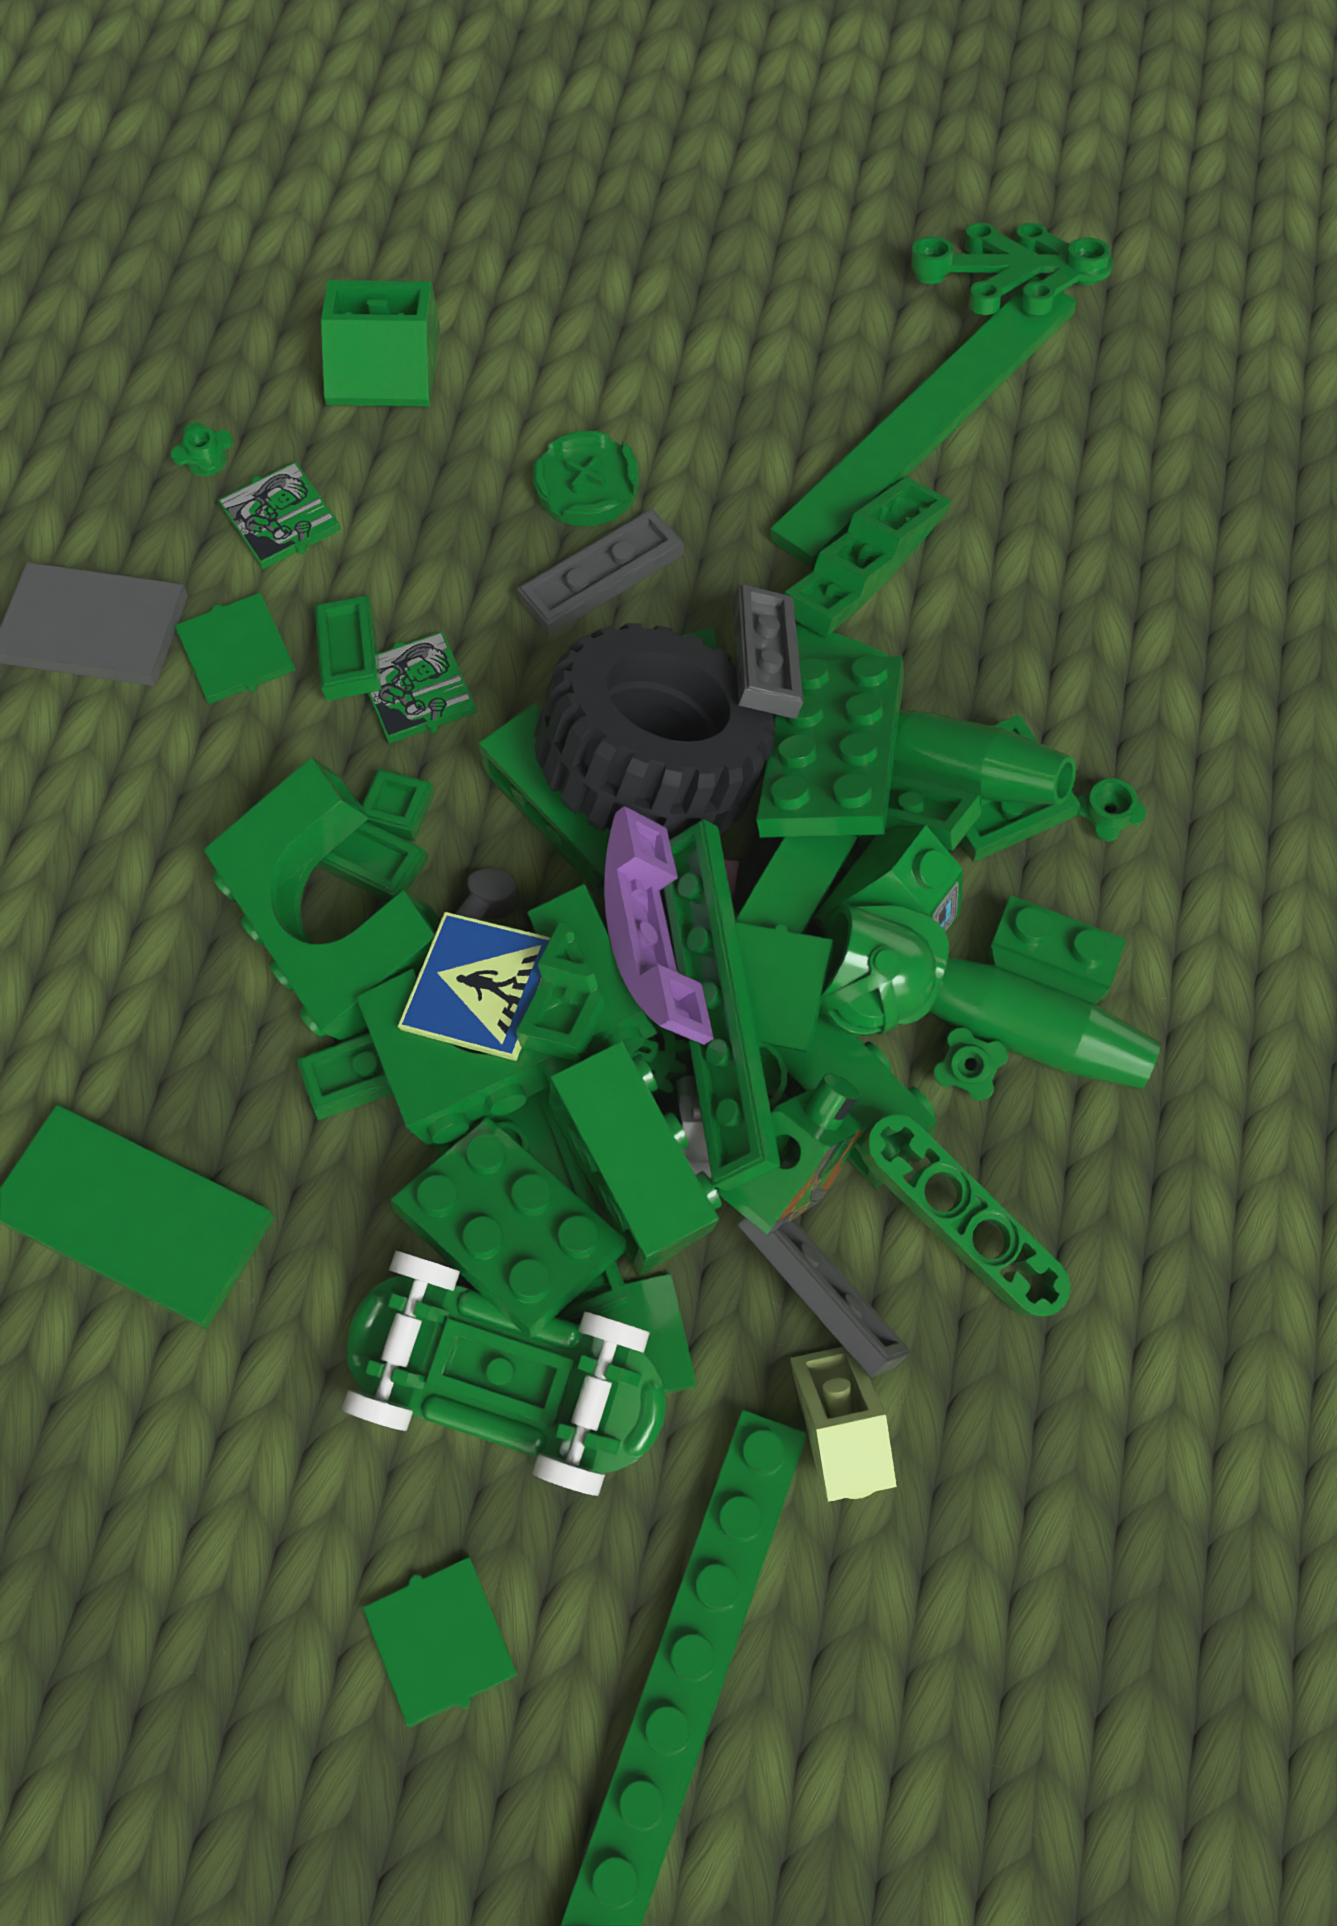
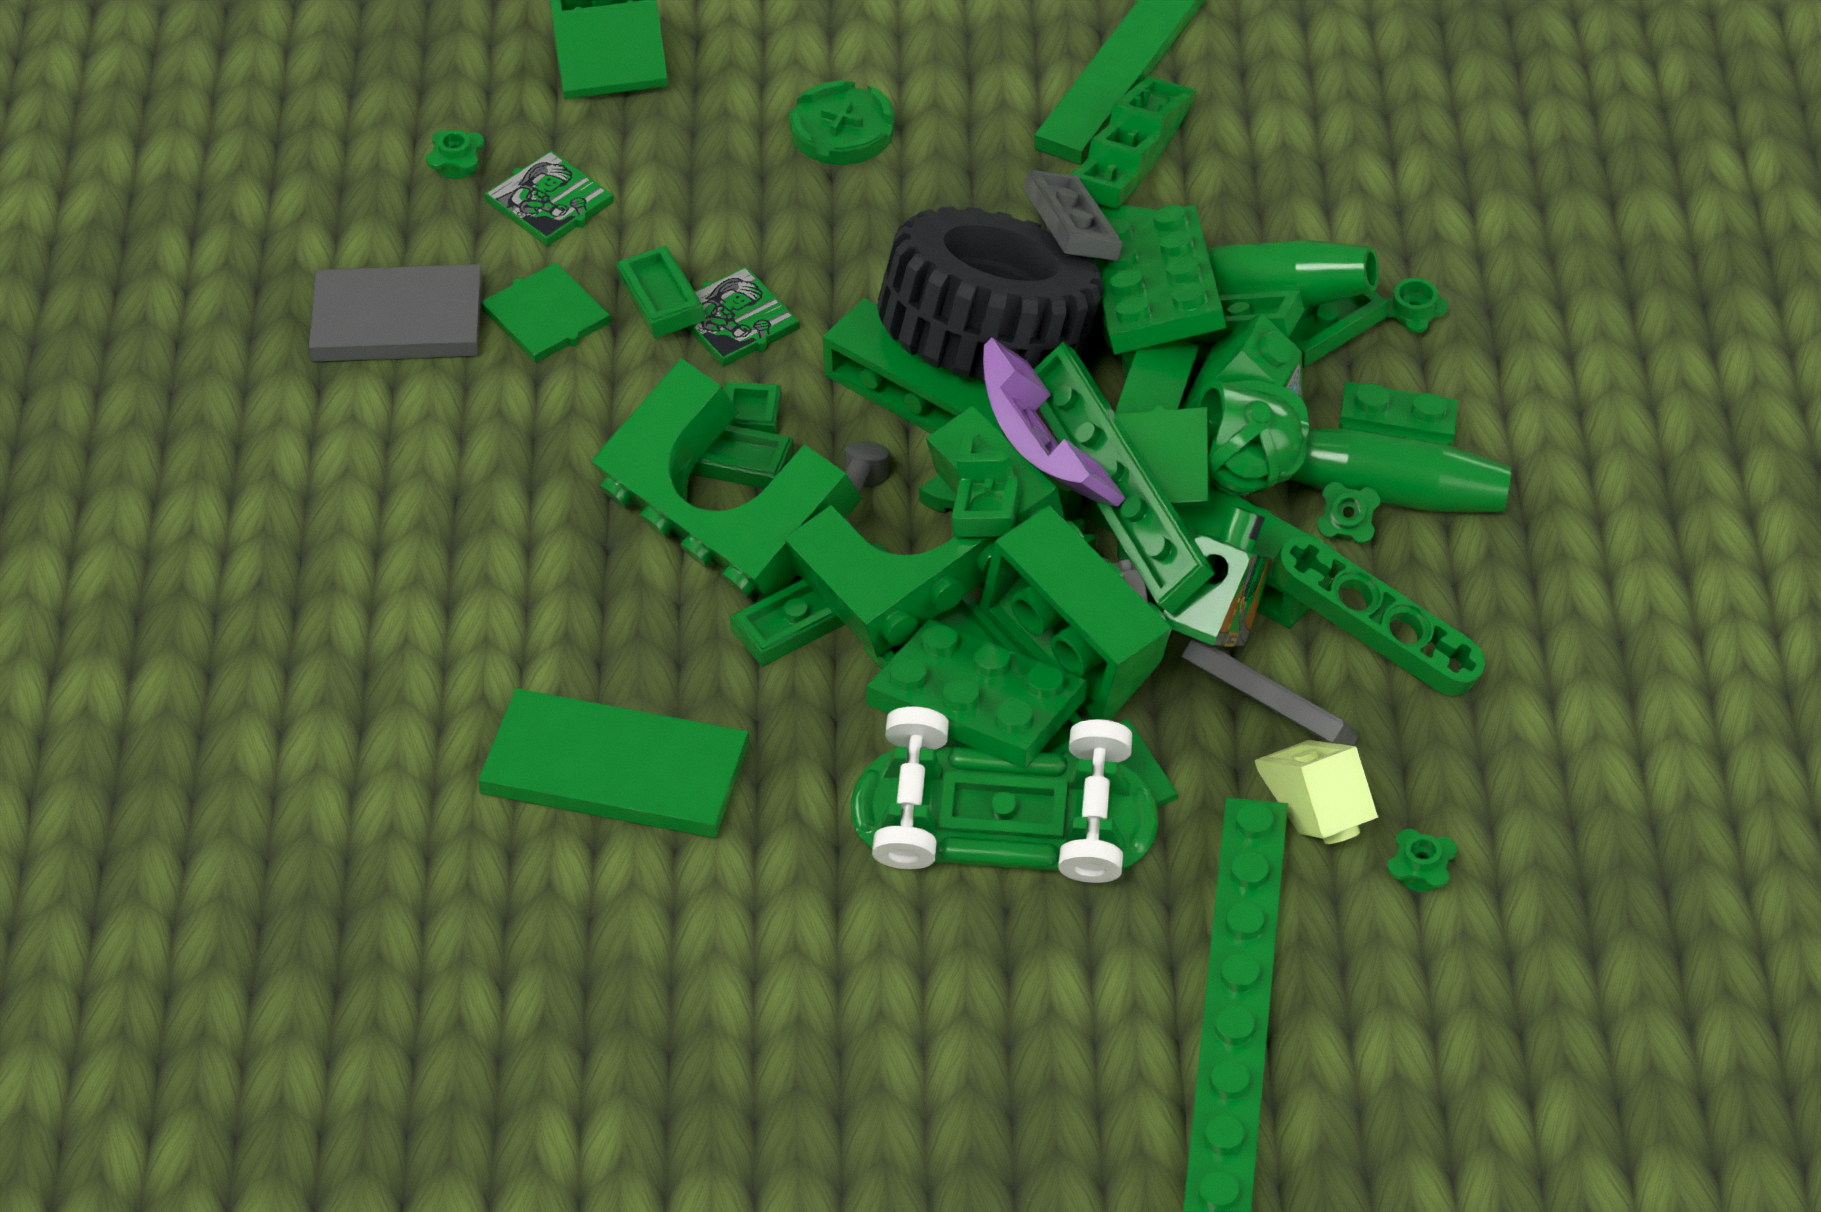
camera: 15 degrees left, 15 degrees down
(439, 1642) = (1011, 1017): green piece -> none
(475, 985) = (898, 501): piece -> none
(600, 571) = (881, 196): dark grey tile -> none
(939, 1561) = (1418, 873): none -> green plate

